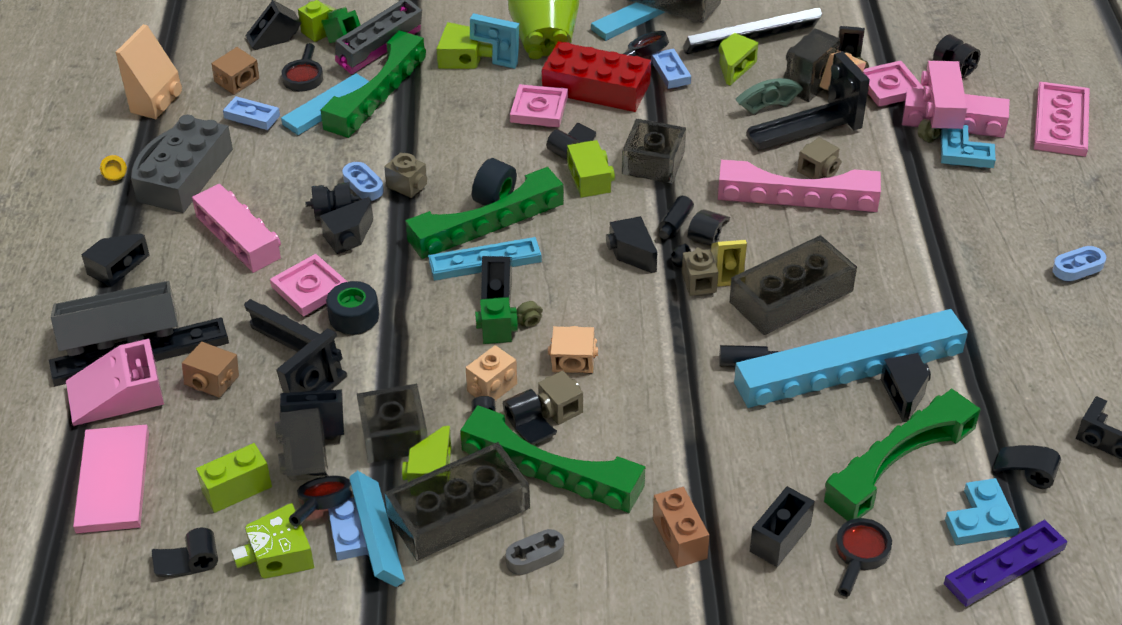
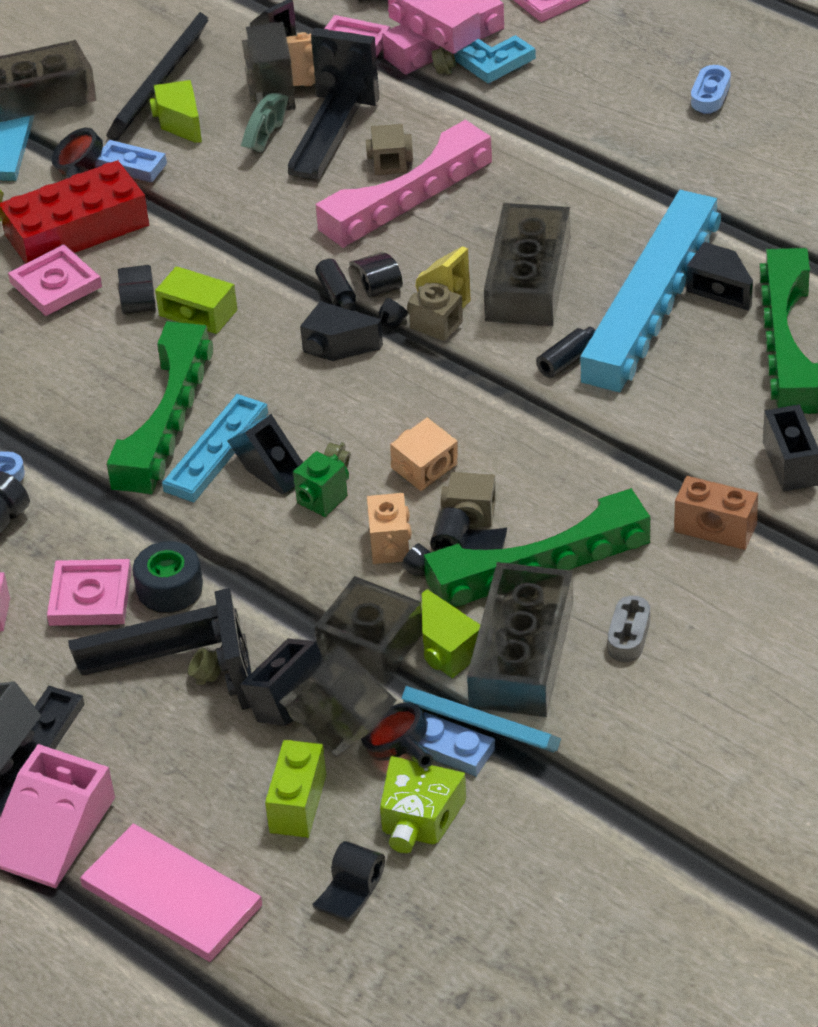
camera: 45 degrees left, 0 degrees up
(210, 369) = (121, 730): medium nougat head -> none
(348, 225) = (43, 517): black slope -> none
(405, 174) = (33, 428): dark tan brick -> none
(493, 182) = (137, 373): black wheel -> none
(653, 151) = (239, 240): clear smoke brick -> none

